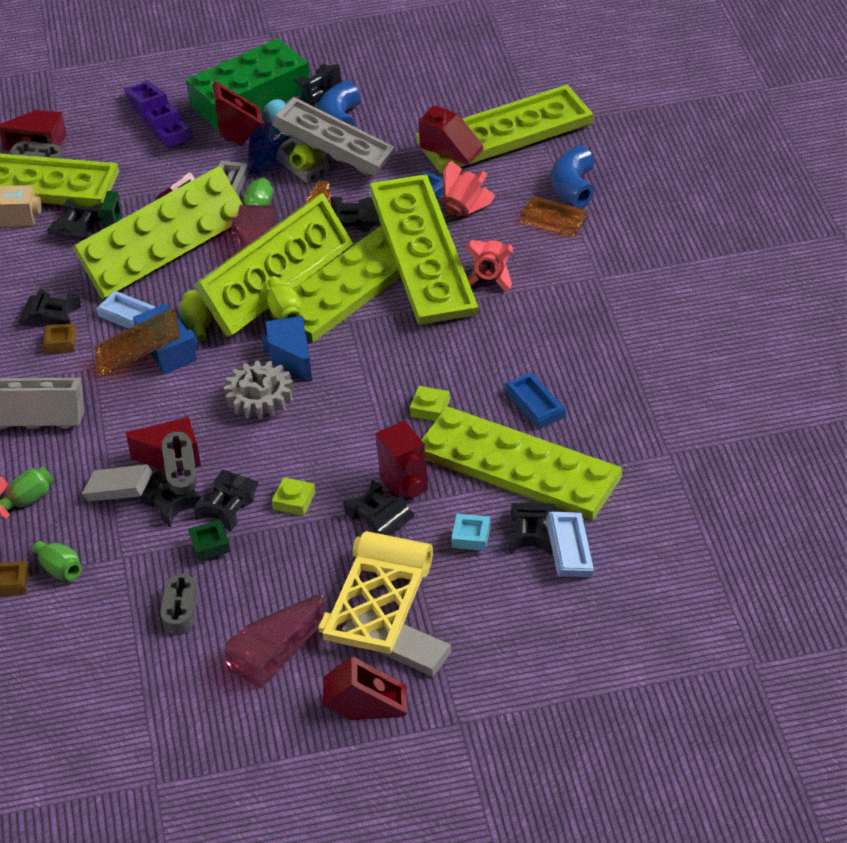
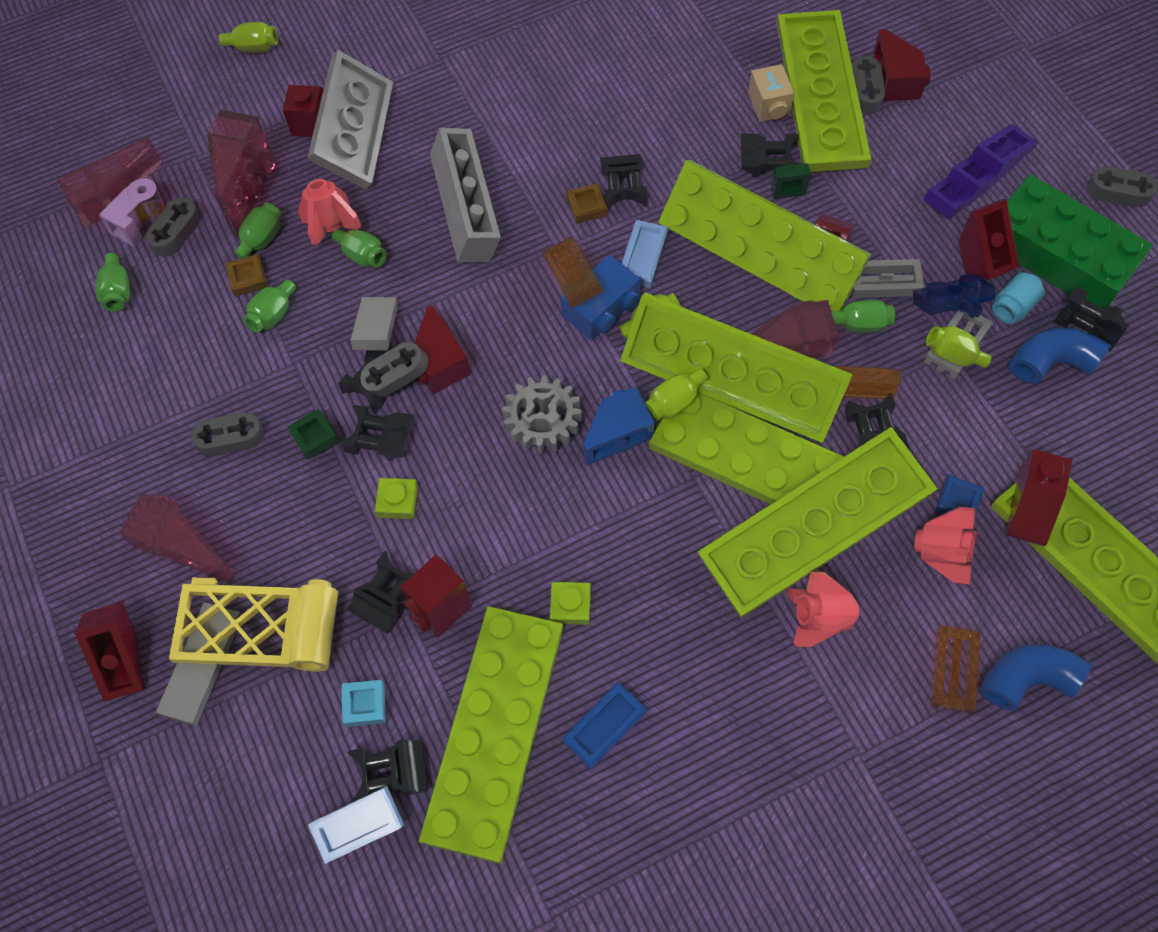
camera: 75 degrees right, 20 degrees up
(210, 51) = (1122, 186): none -> dark grey beam
(333, 136) = (985, 362): light grey plate -> none

